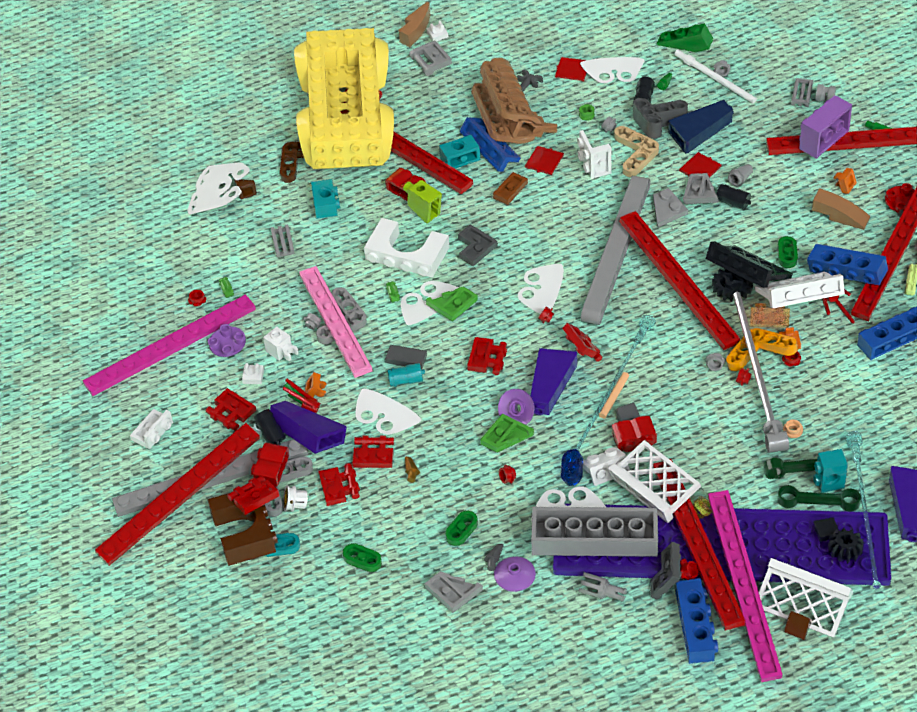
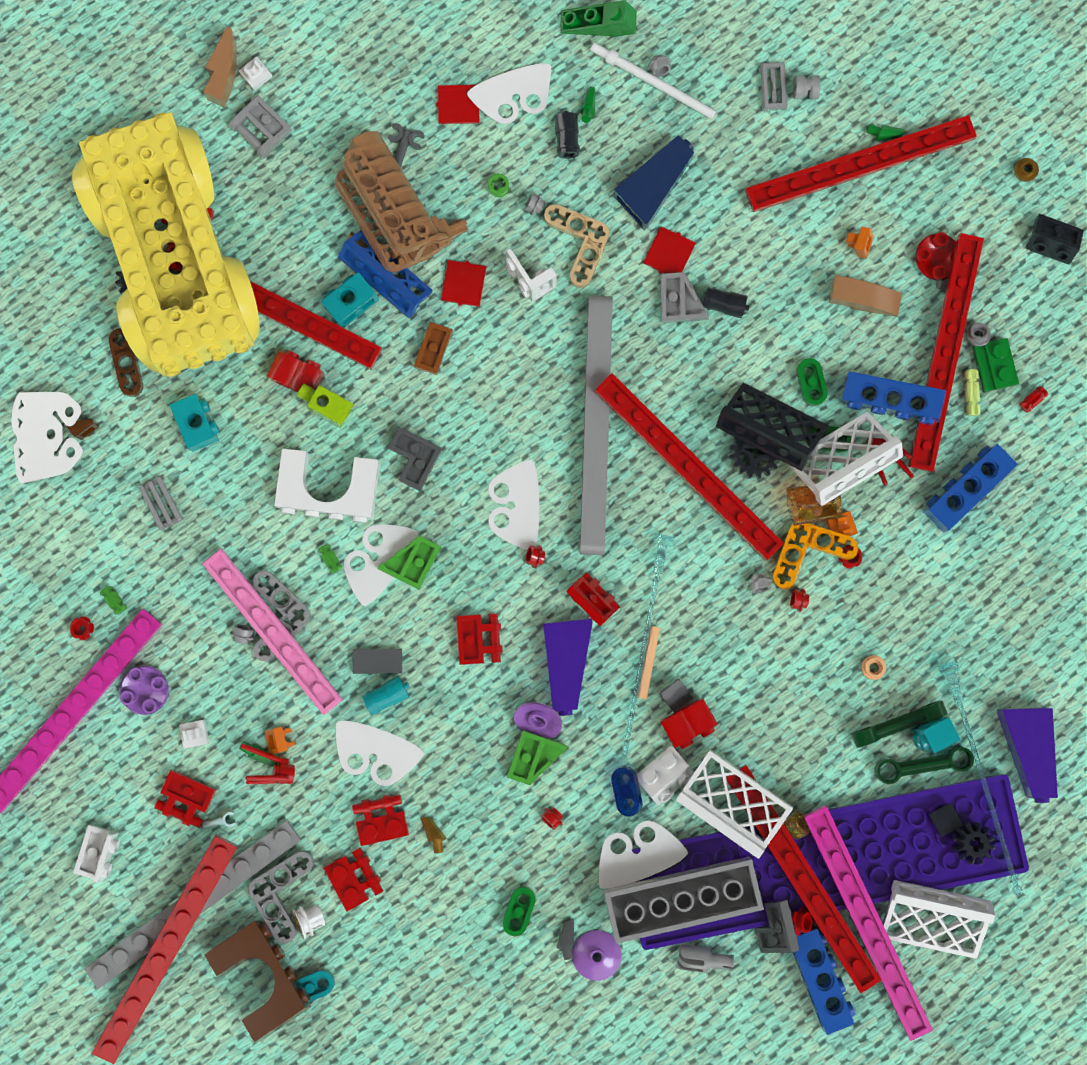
camera: 20 degrees left, 35 degrees up
(253, 494) = (265, 950): red plate -> none
(270, 429) = (245, 825): black piece -> none
(271, 462) = (264, 885): red brick -> none
(279, 344) = (214, 686): white brick -> none
(307, 427) = (289, 811): dark purple slope -> none
(363, 557) = (414, 982): green plate -> none
(452, 591) = (532, 1002): light grey wing -> none
(654, 117) = (591, 177): dark grey beam -> none
(668, 207) = (643, 334): light grey wing -> none
(740, 174) = (725, 259): light grey cone -> none
(775, 438) = (858, 692): flat silver piece -> none
(798, 625) = (936, 954): reddish brown slope -> none
(825, 126) = (824, 166): medium lavender brick -> none

